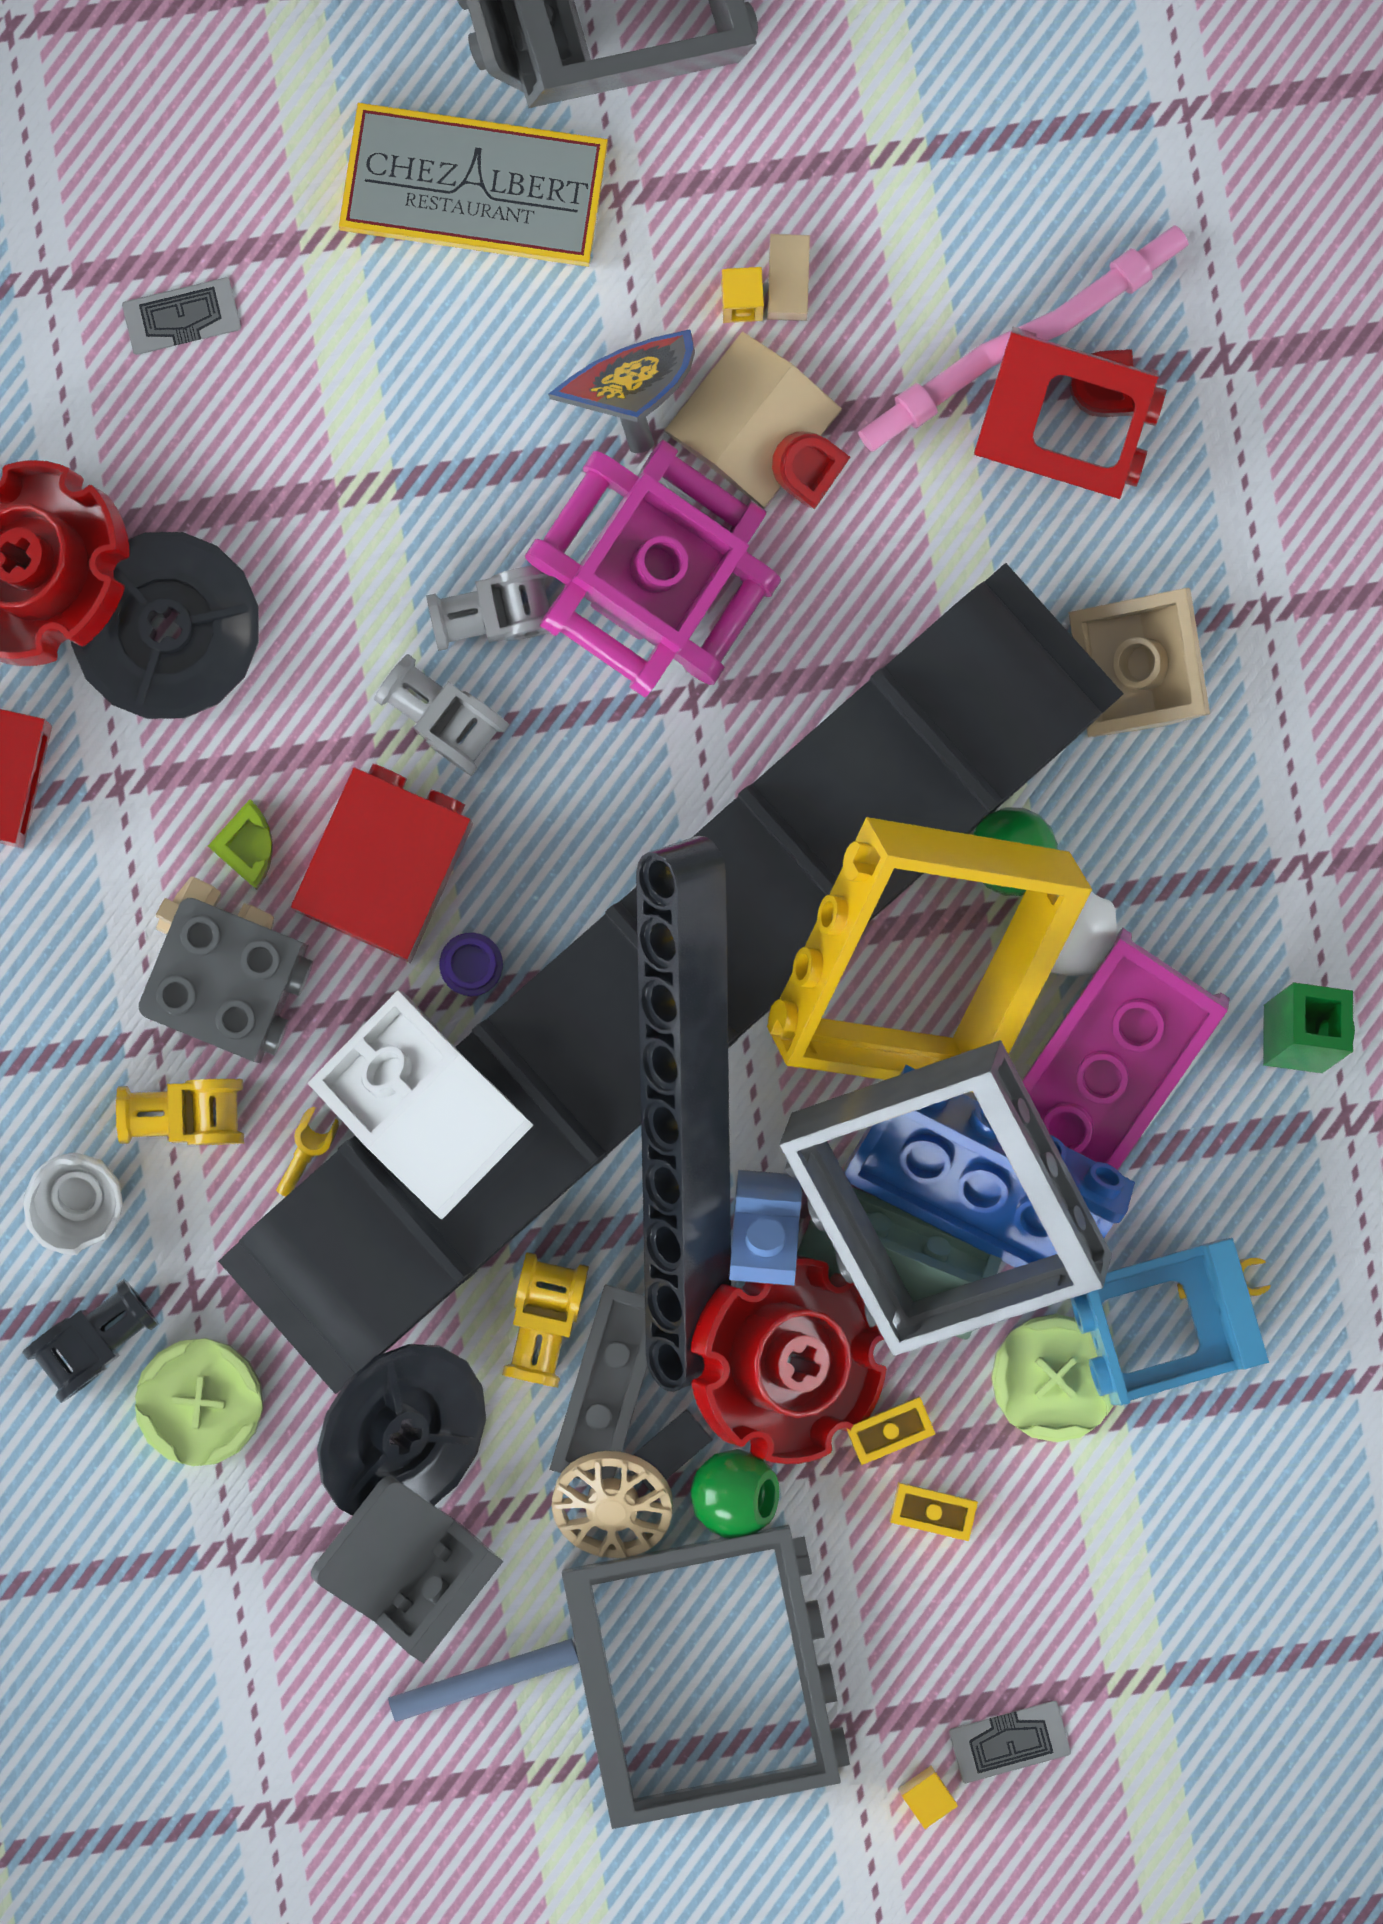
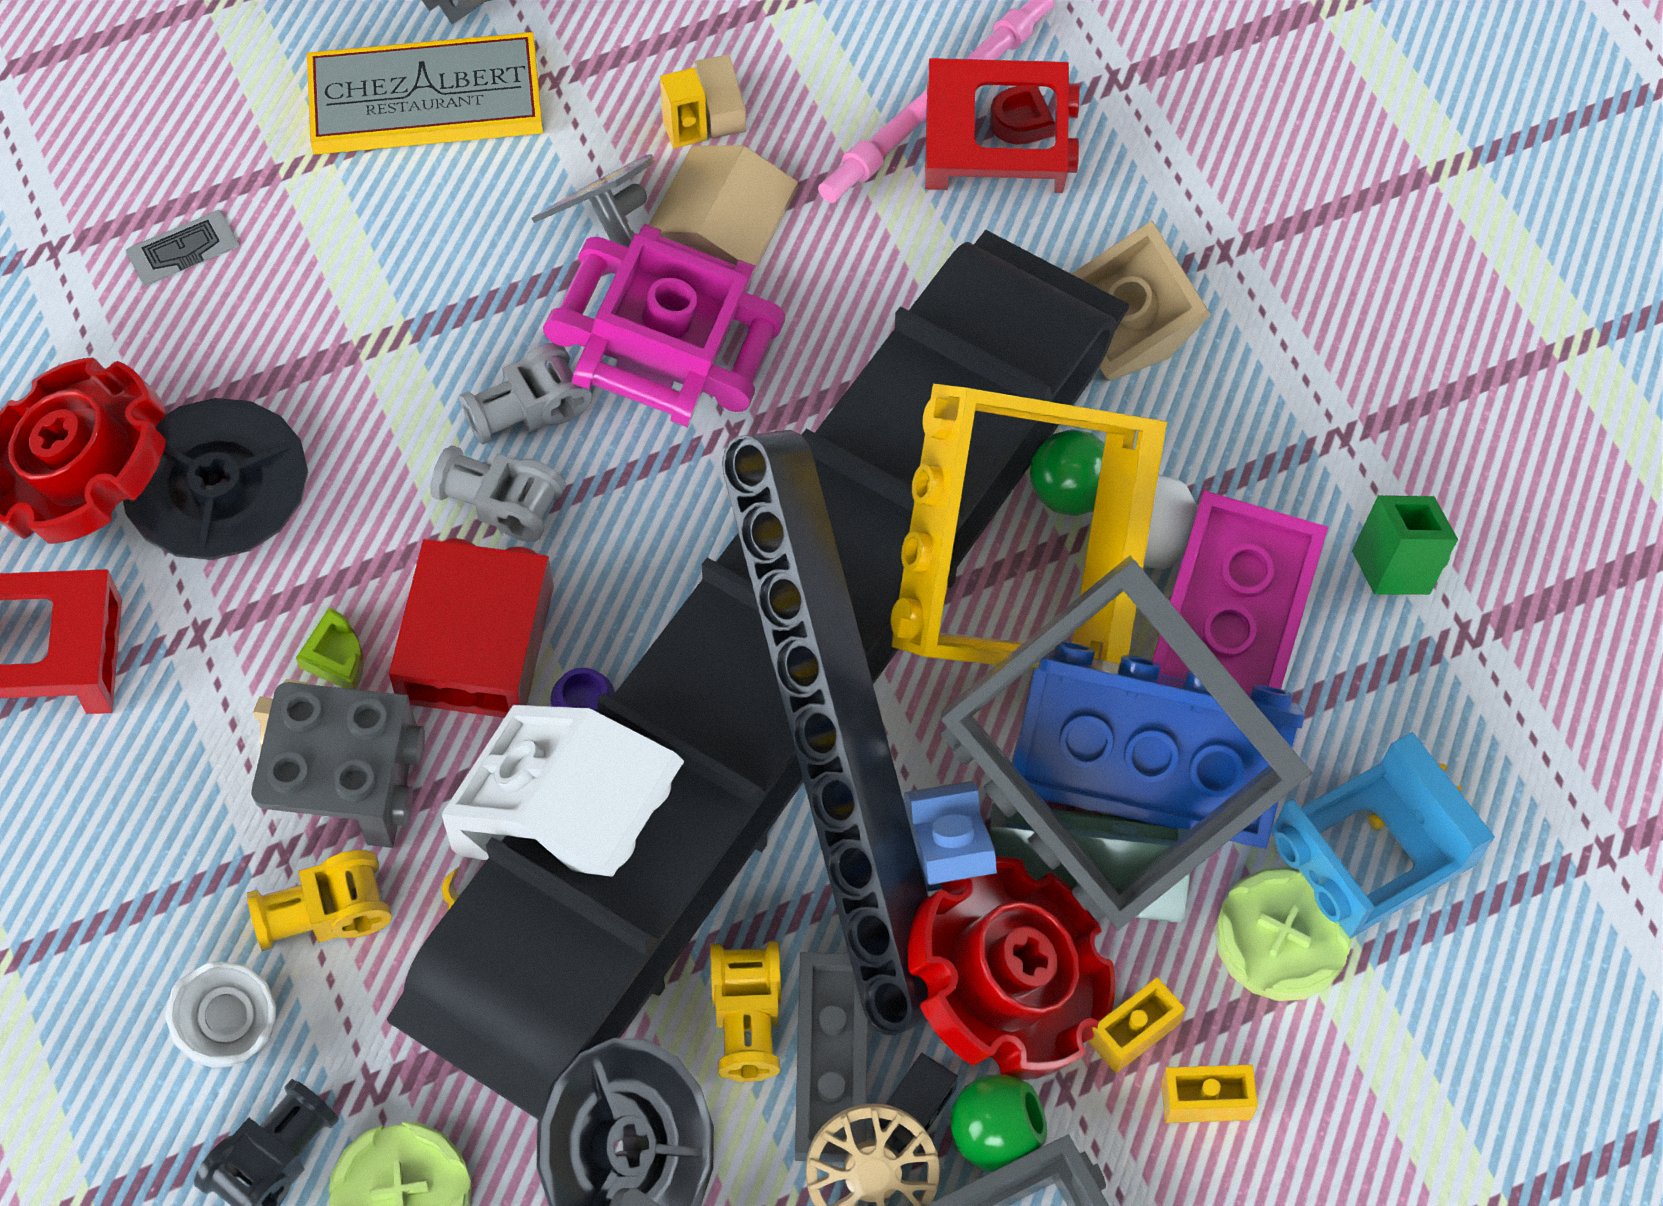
camera: 15 degrees left, 25 degrees down
(807, 466) = (781, 225): red tile -> none

